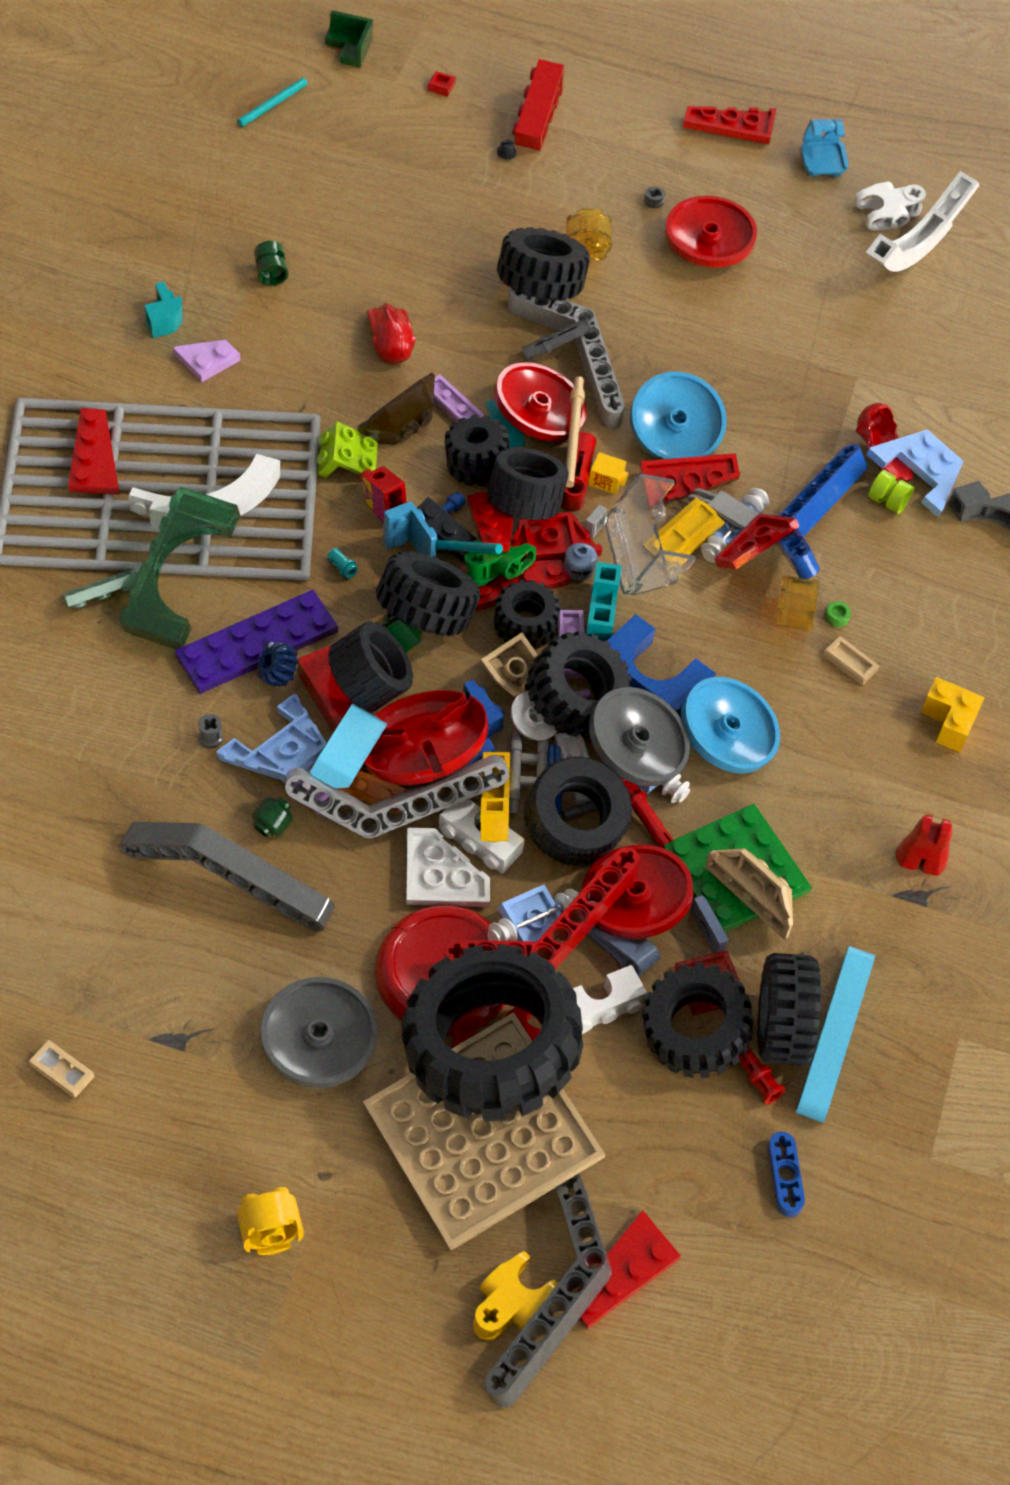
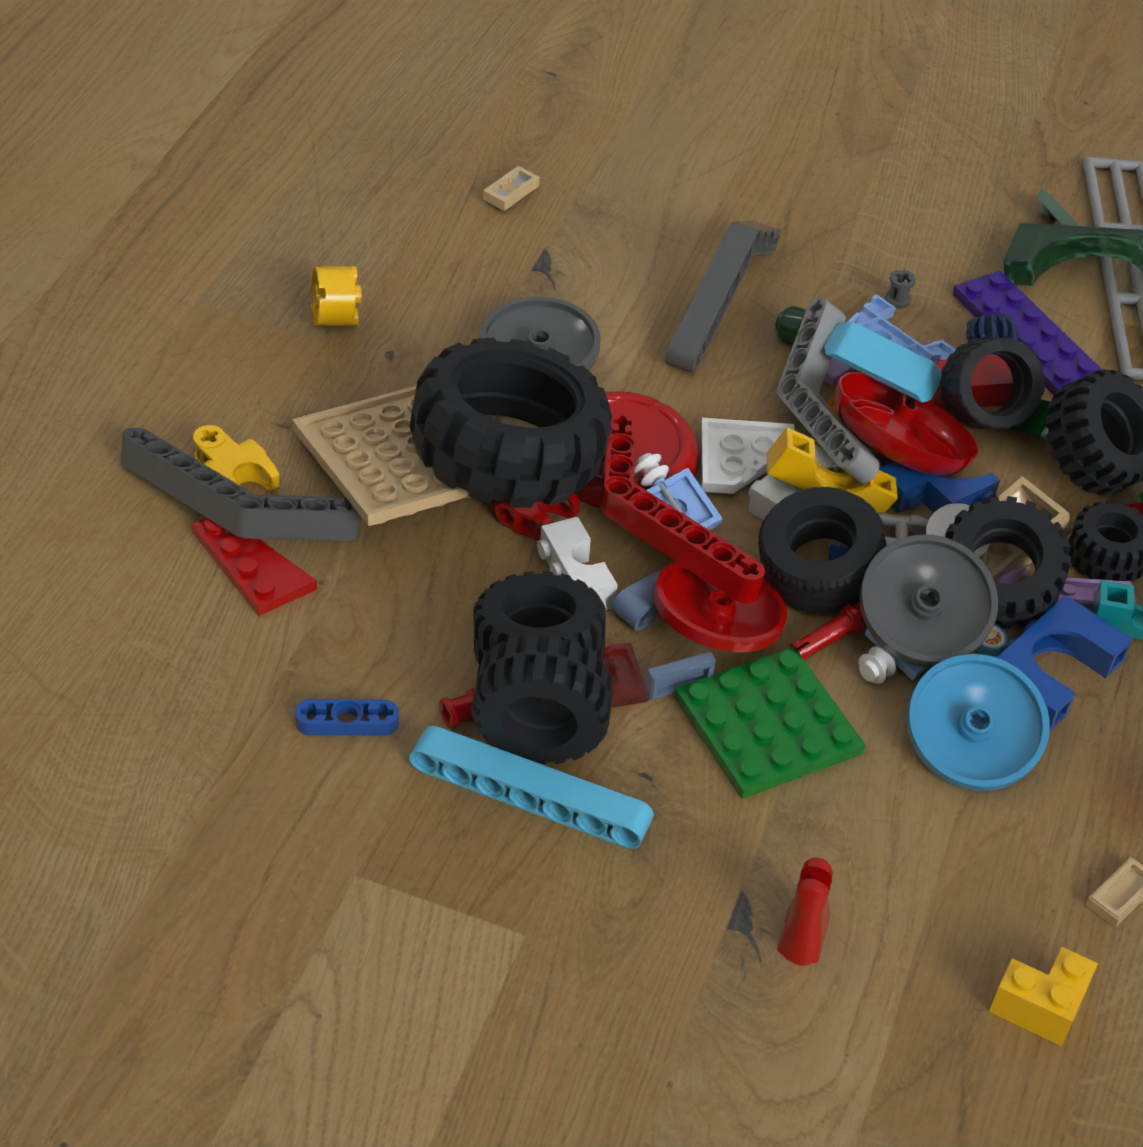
camera: 95 degrees right, 10 degrees down
(755, 886) = (722, 712): tan wedge -> none

